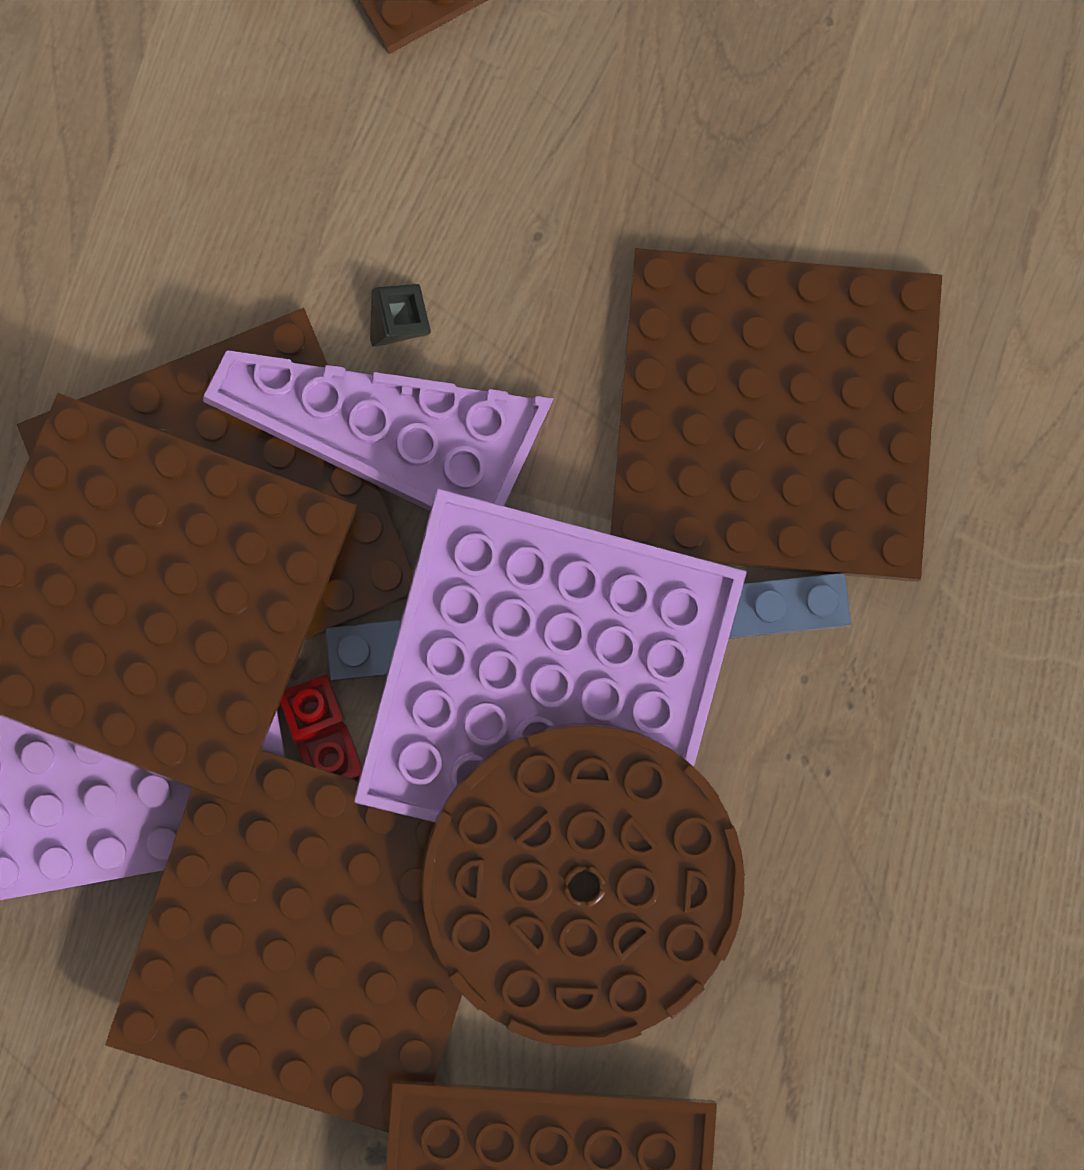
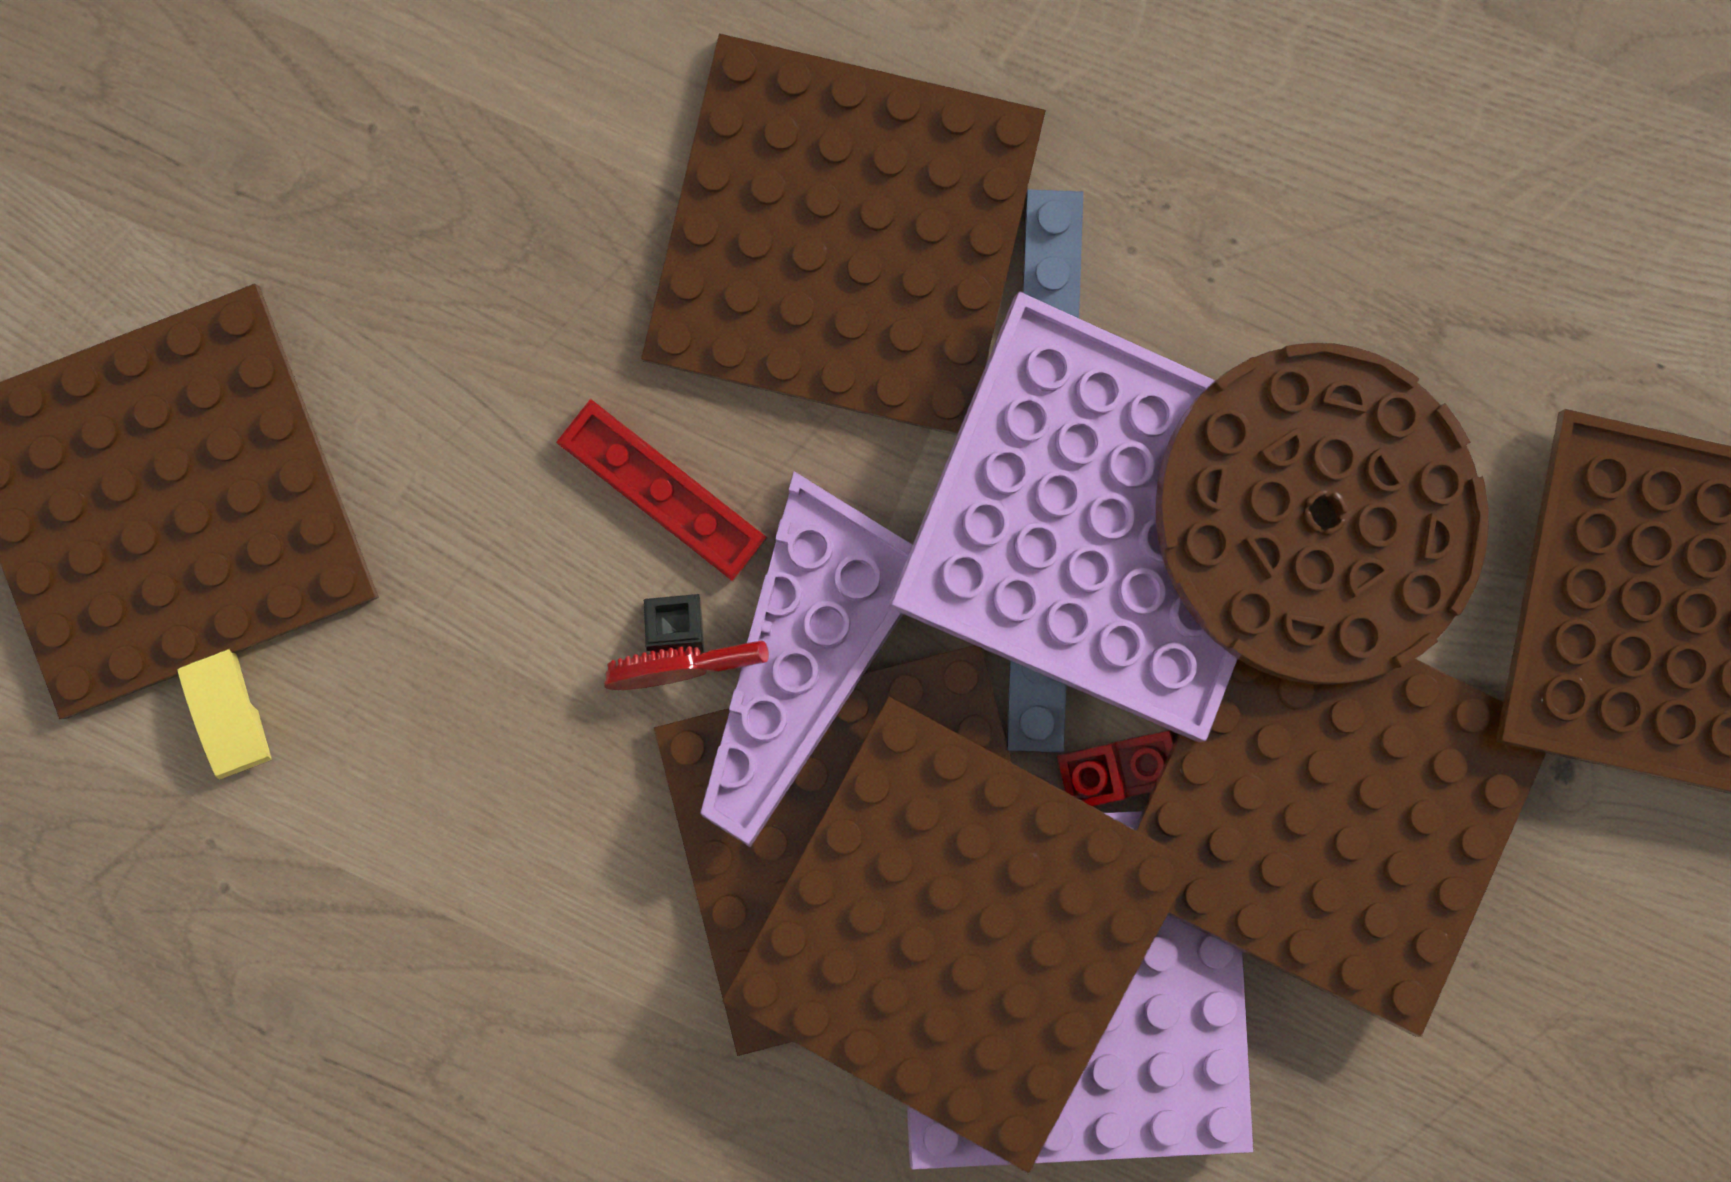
camera: 80 degrees left, 5 degrees up
(361, 320) = (678, 666): none -> red piece
(519, 285) = (661, 490): none -> red tile

